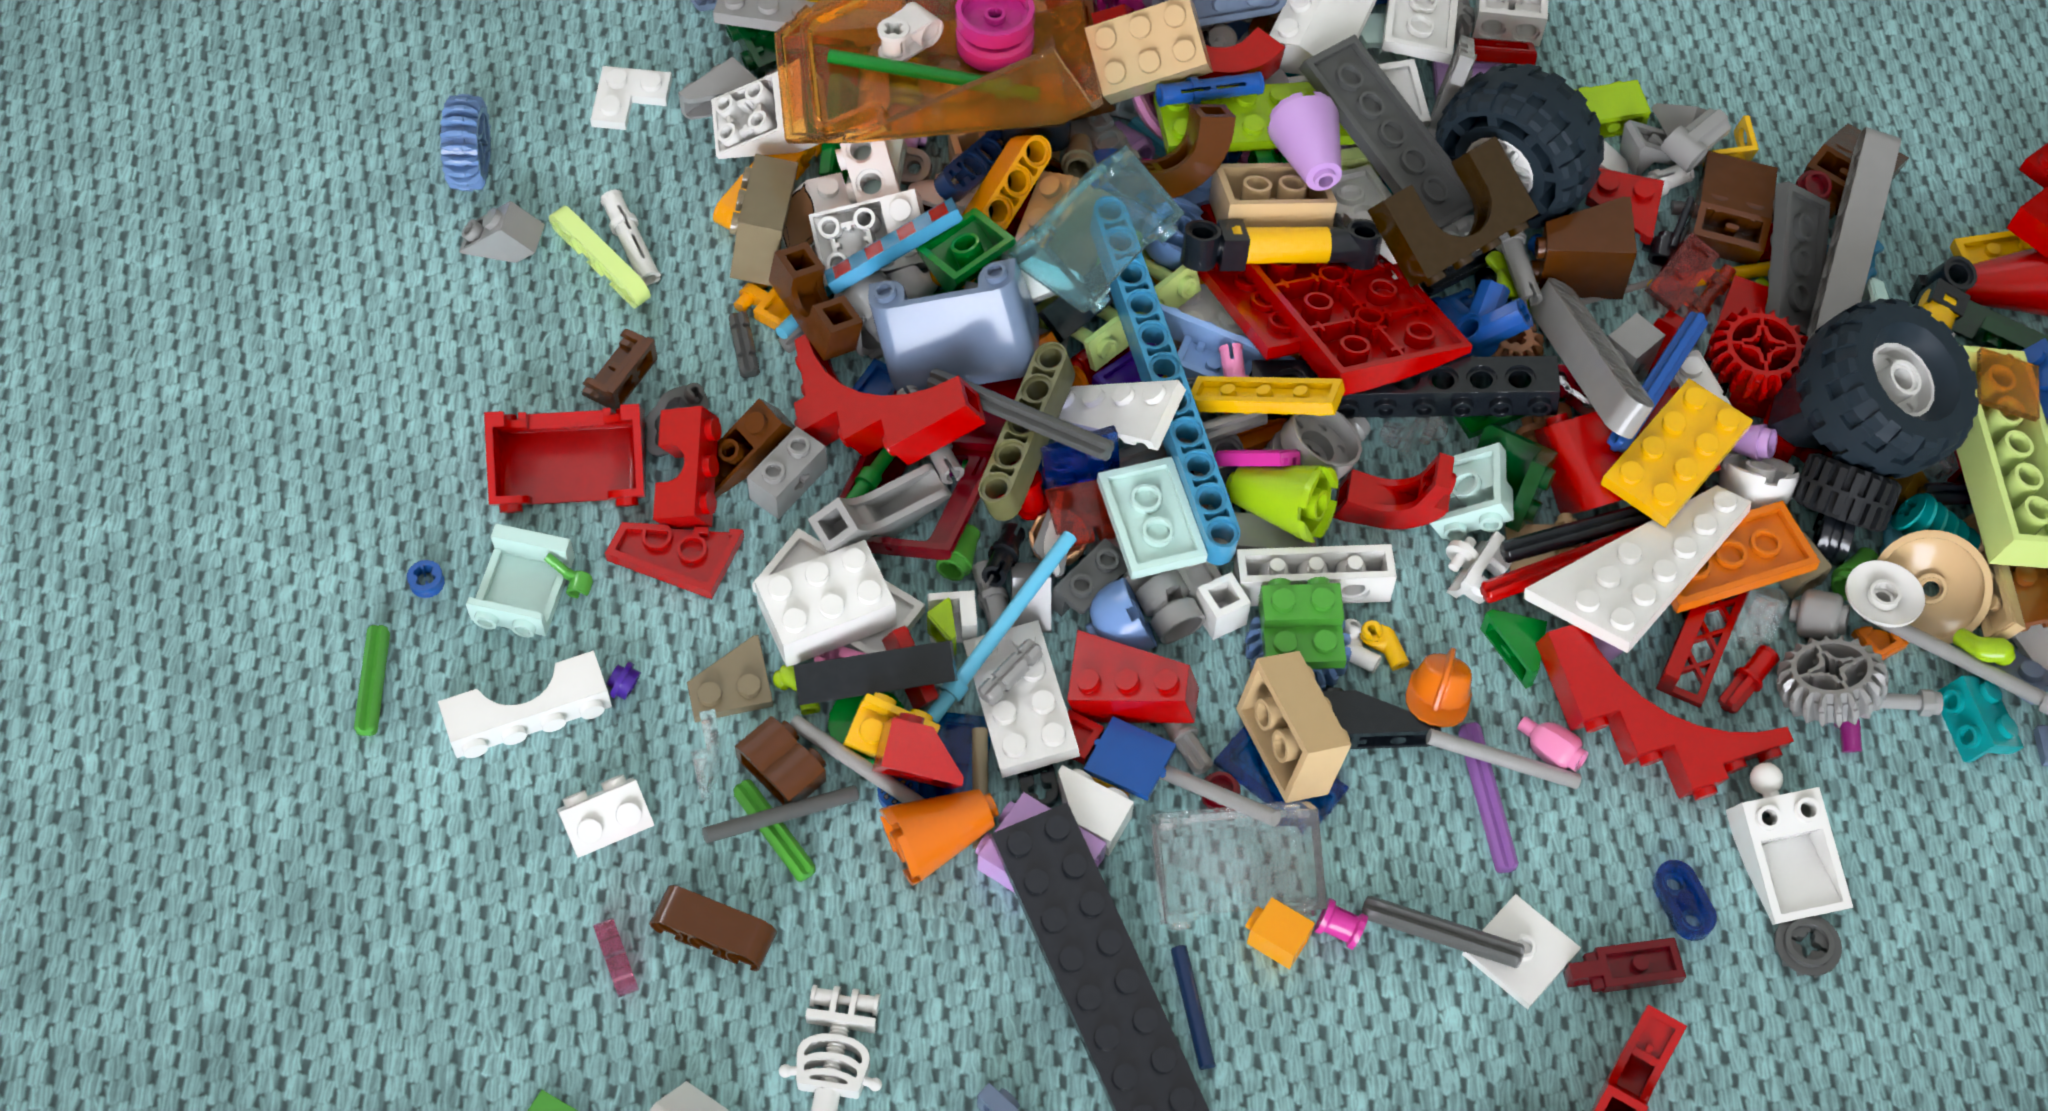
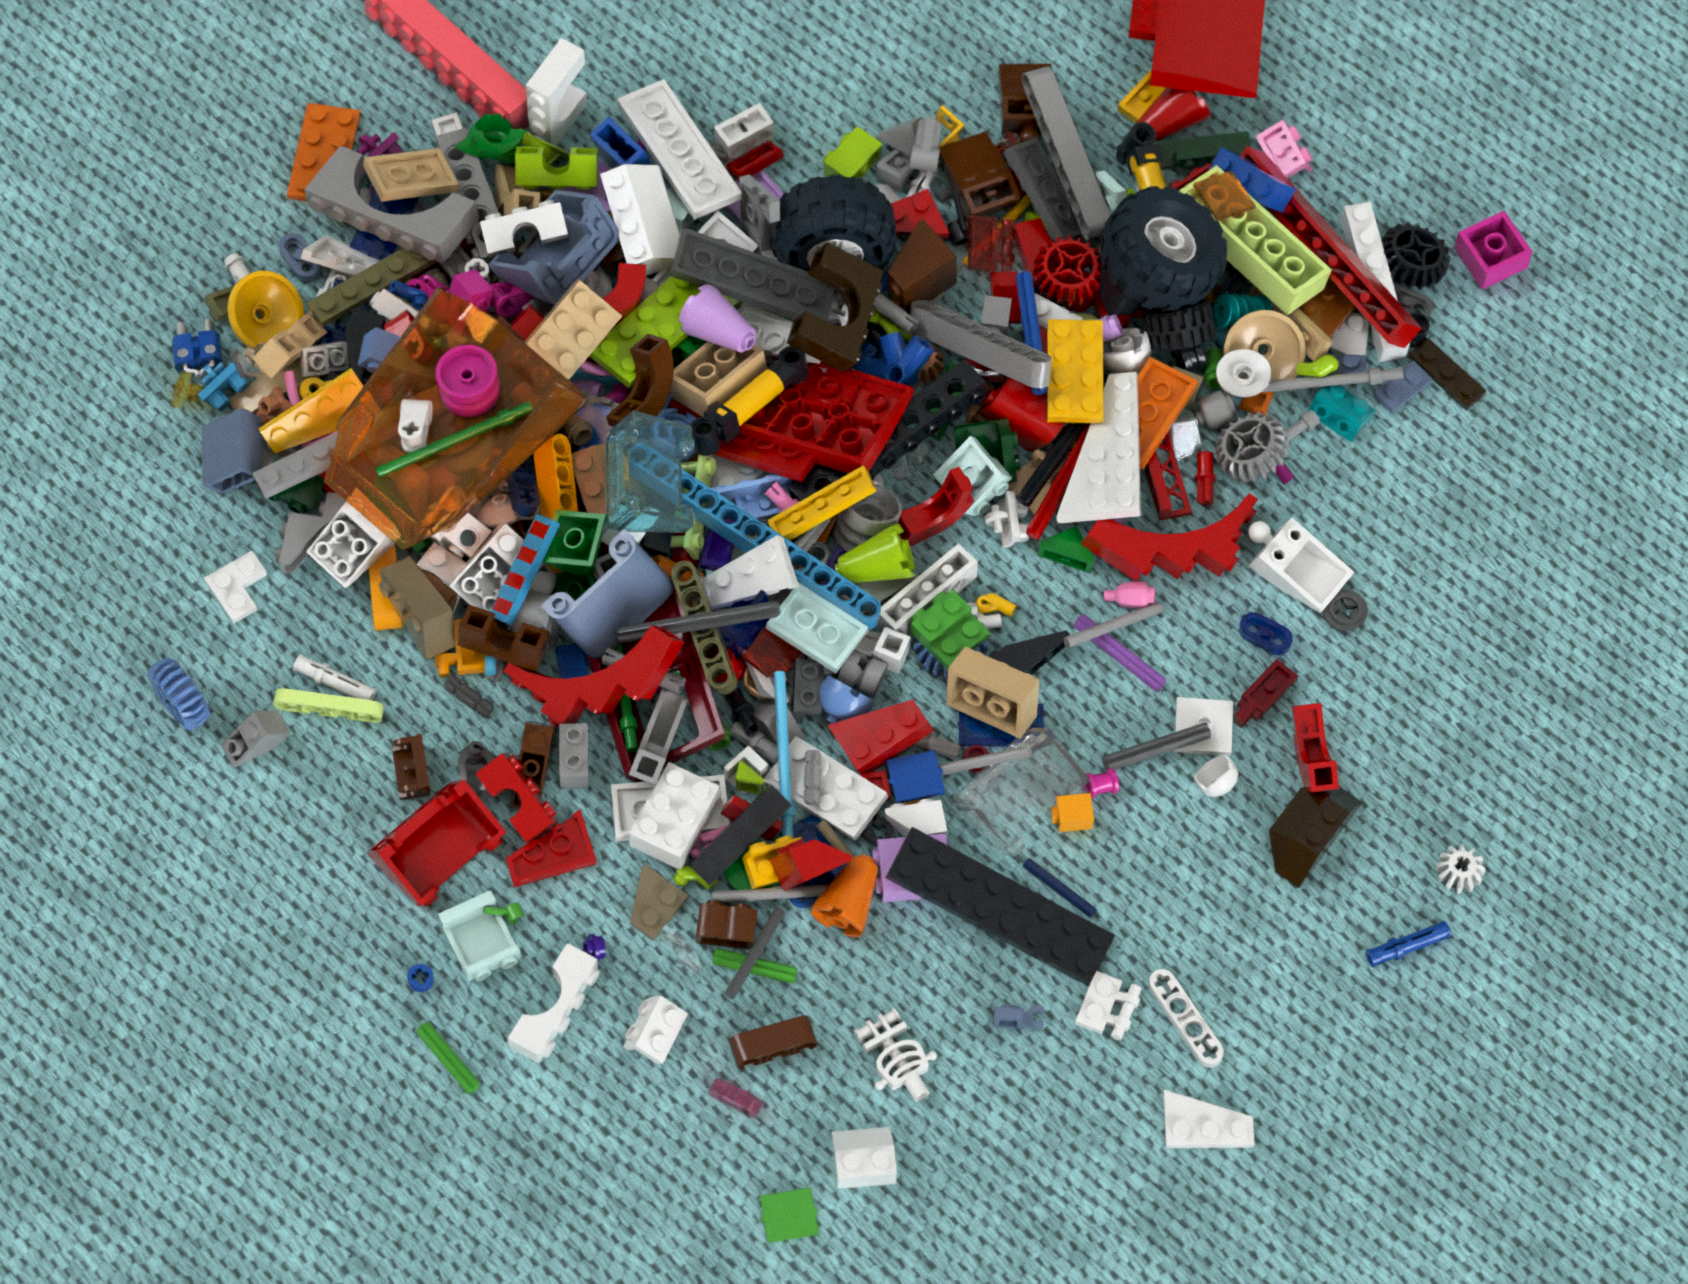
camera: 40 degrees left, 5 degrees up
(1171, 92) = (620, 334): blue pin -> none
(1276, 457) = (847, 546): dark pink tile -> none
(1440, 690) = (1049, 610): orange piece -> none
(1488, 1020) = (1218, 769): none -> white hair
(1816, 183) = (1018, 131): dark red plate -> none

